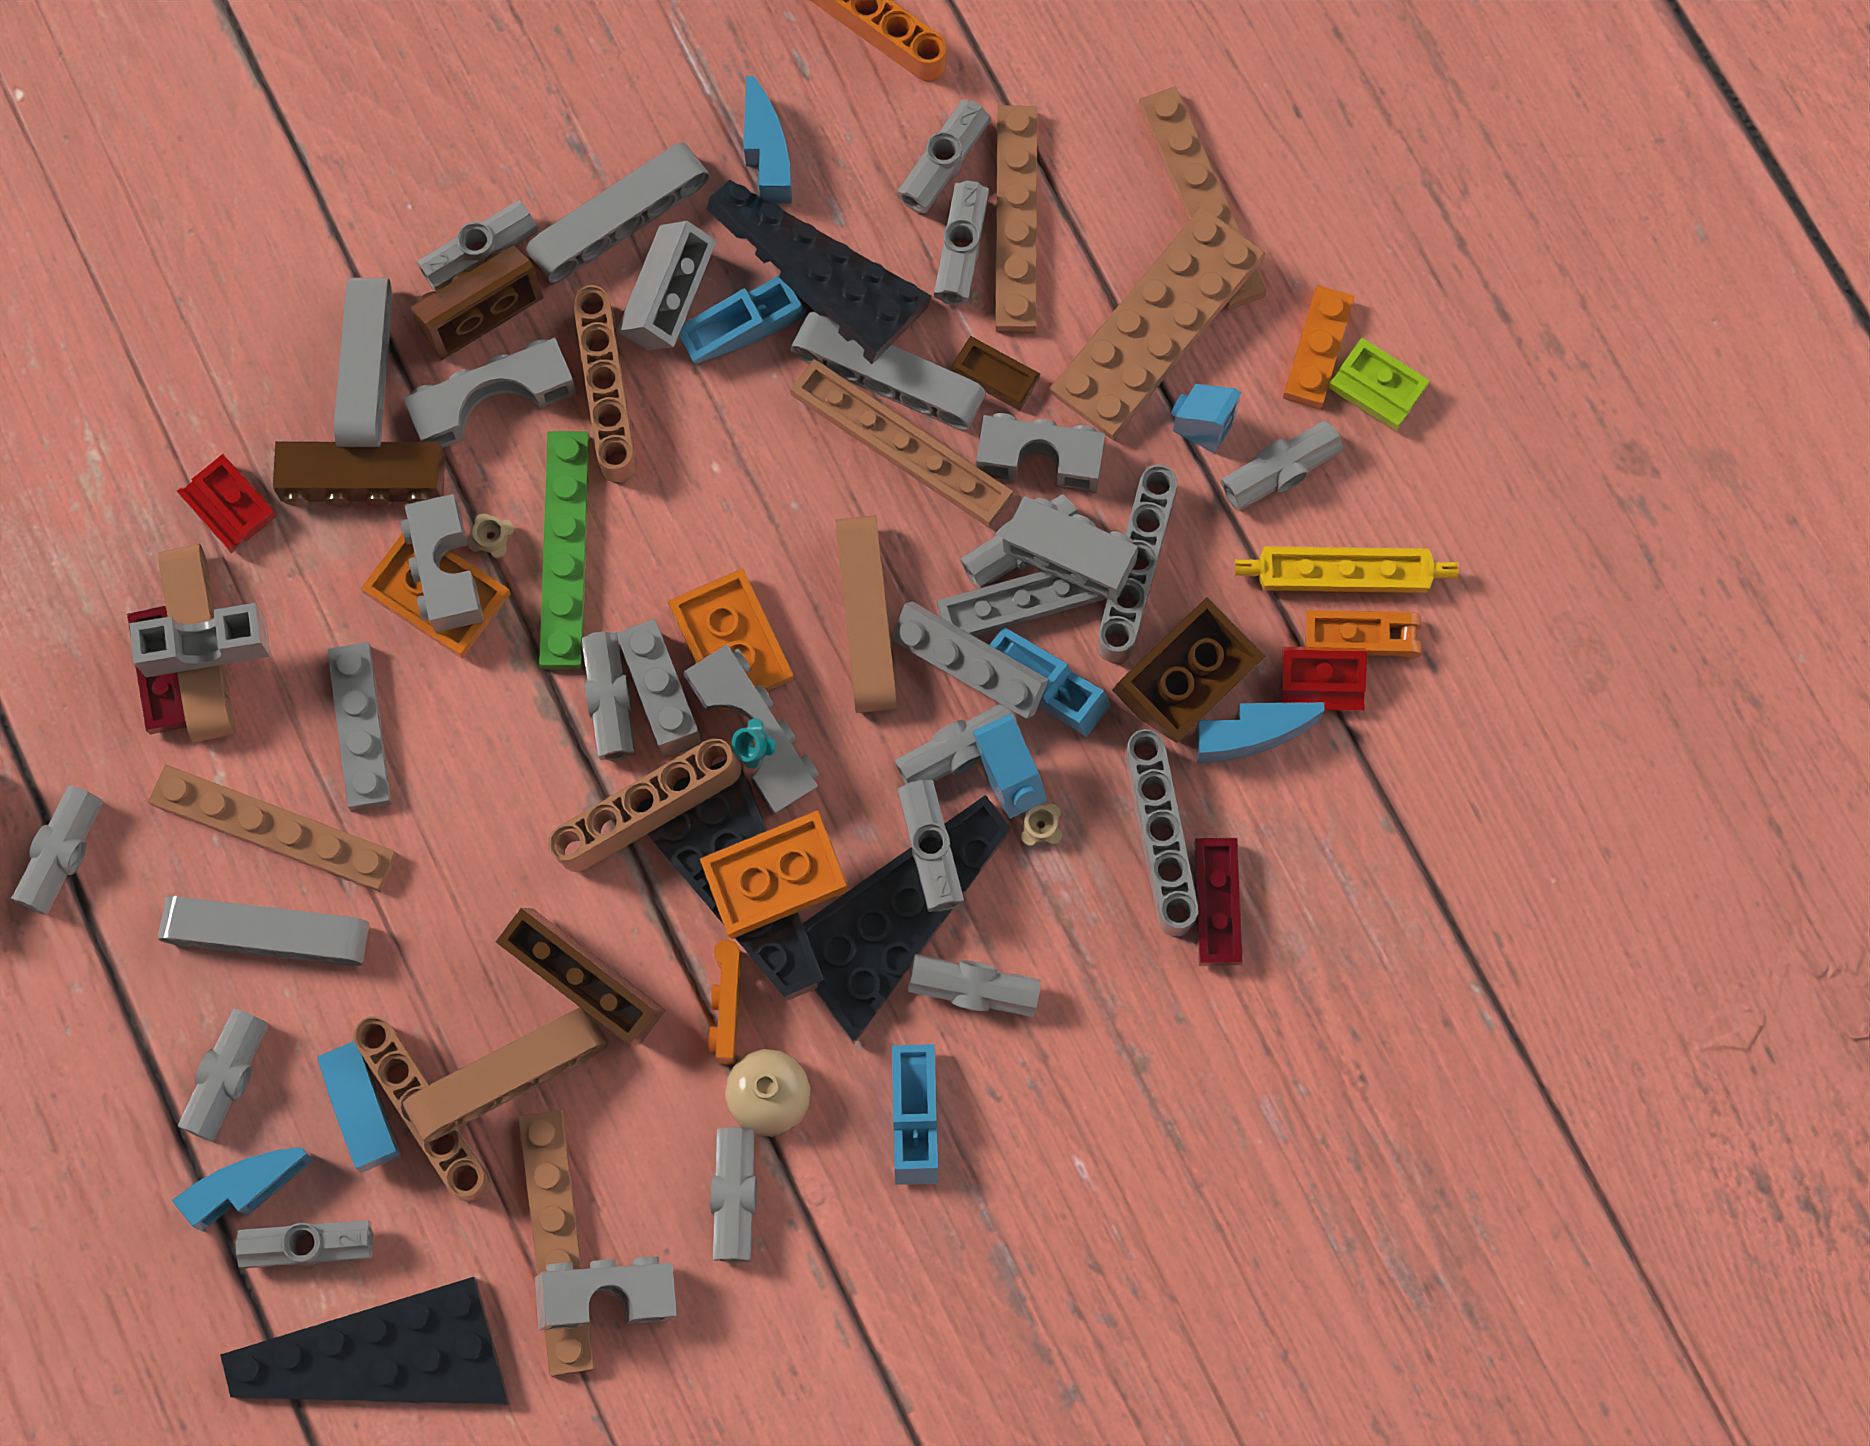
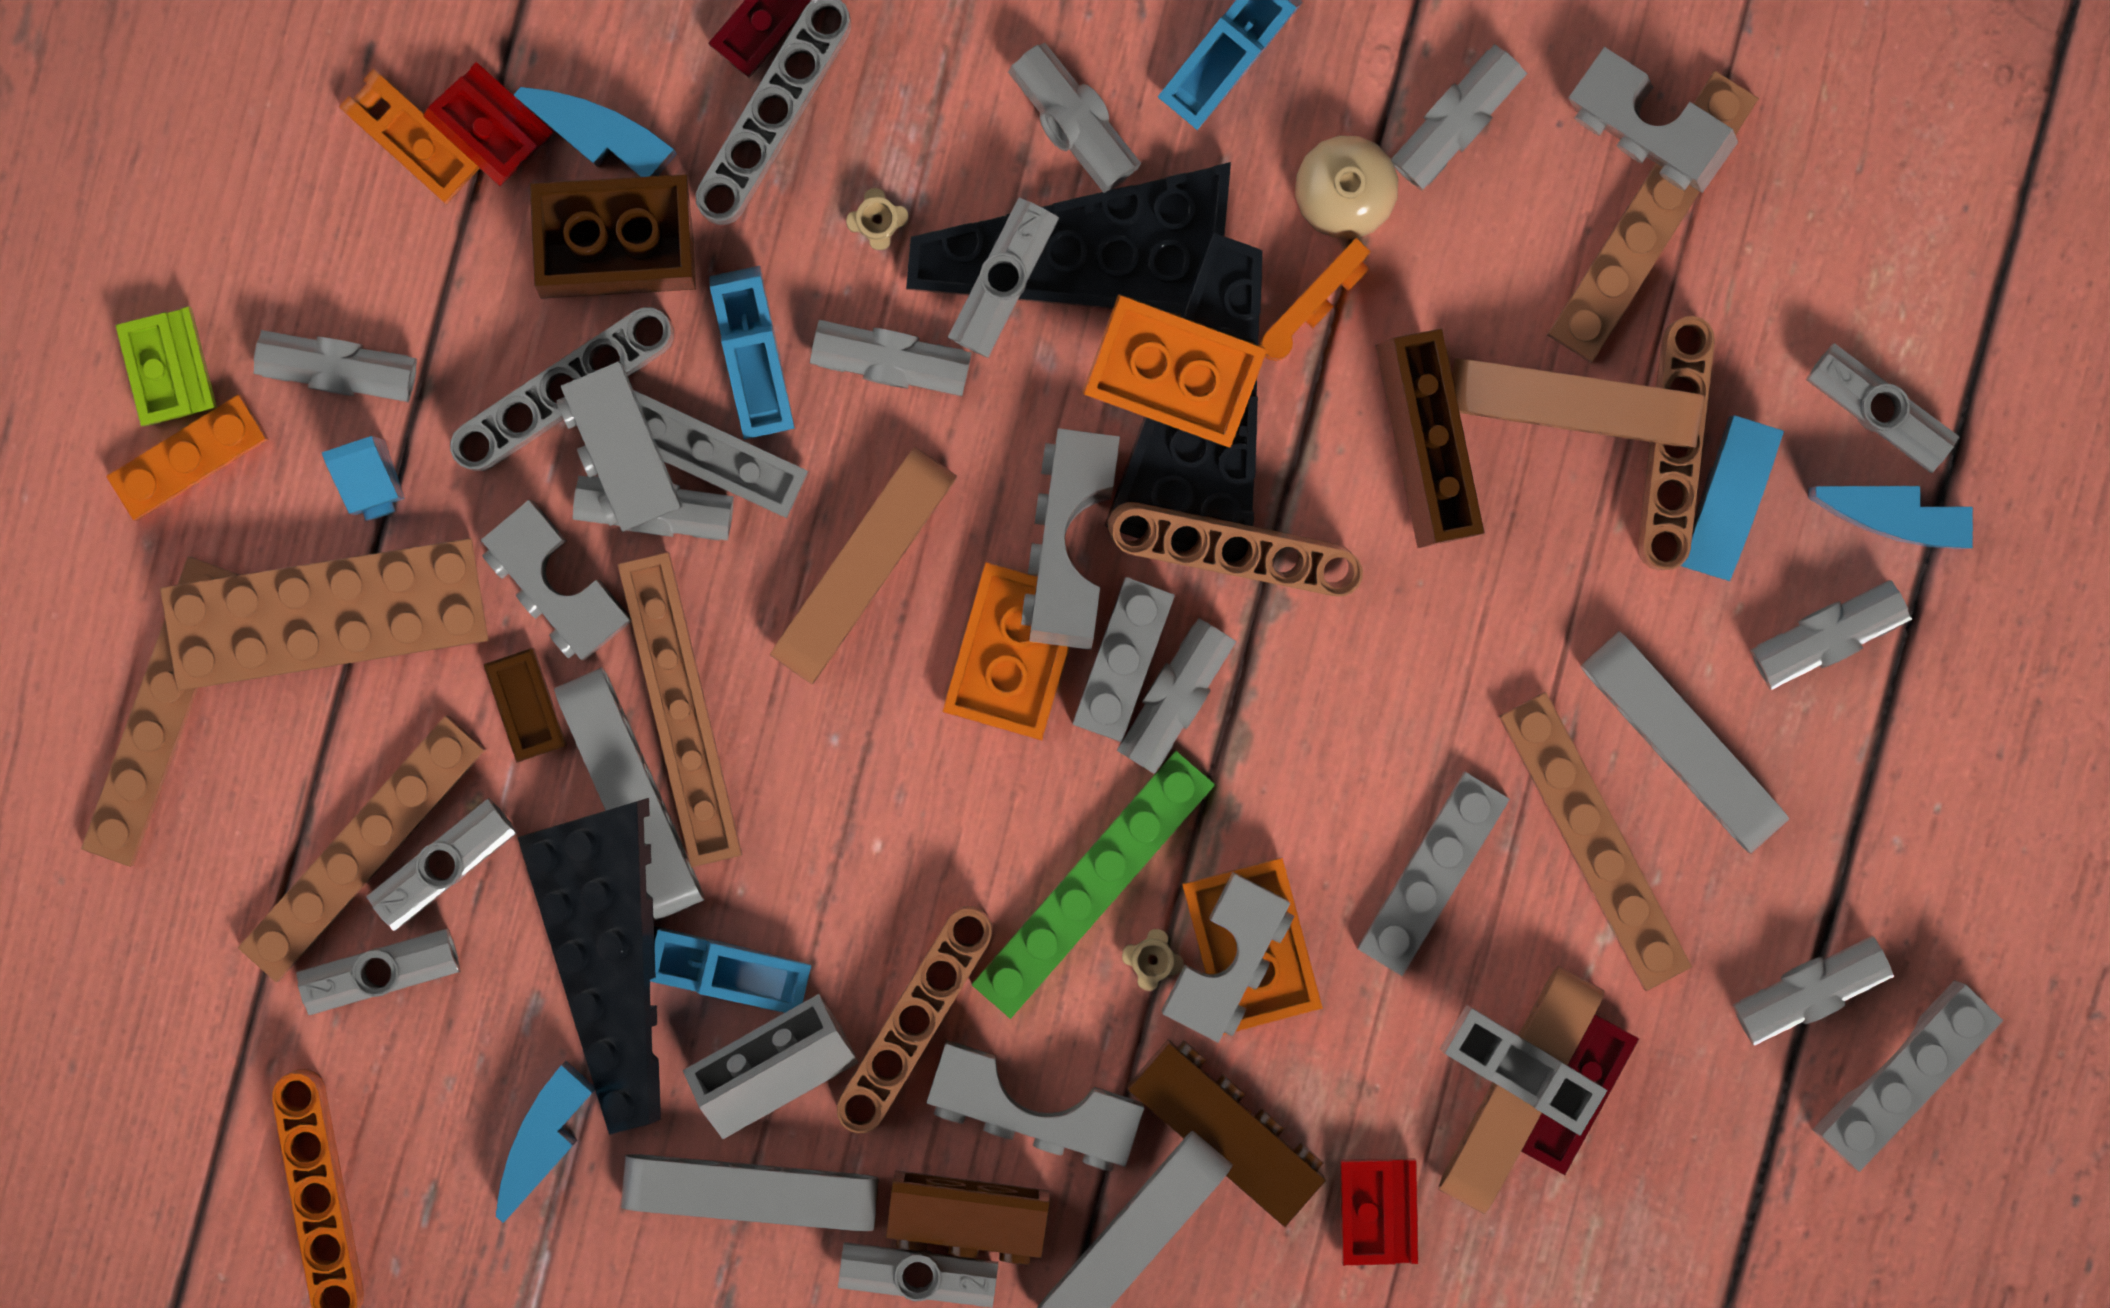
camera: 140 degrees left, 15 degrees up
(401, 1351) = (1873, 238): black wing -> none
(744, 747) = (1098, 514): teal plate -> none
(969, 659) = (808, 429): light grey plate -> none
(1009, 766) = (863, 287): dark azure slope -> none
(1346, 569) = (368, 211): yellow plate -> none

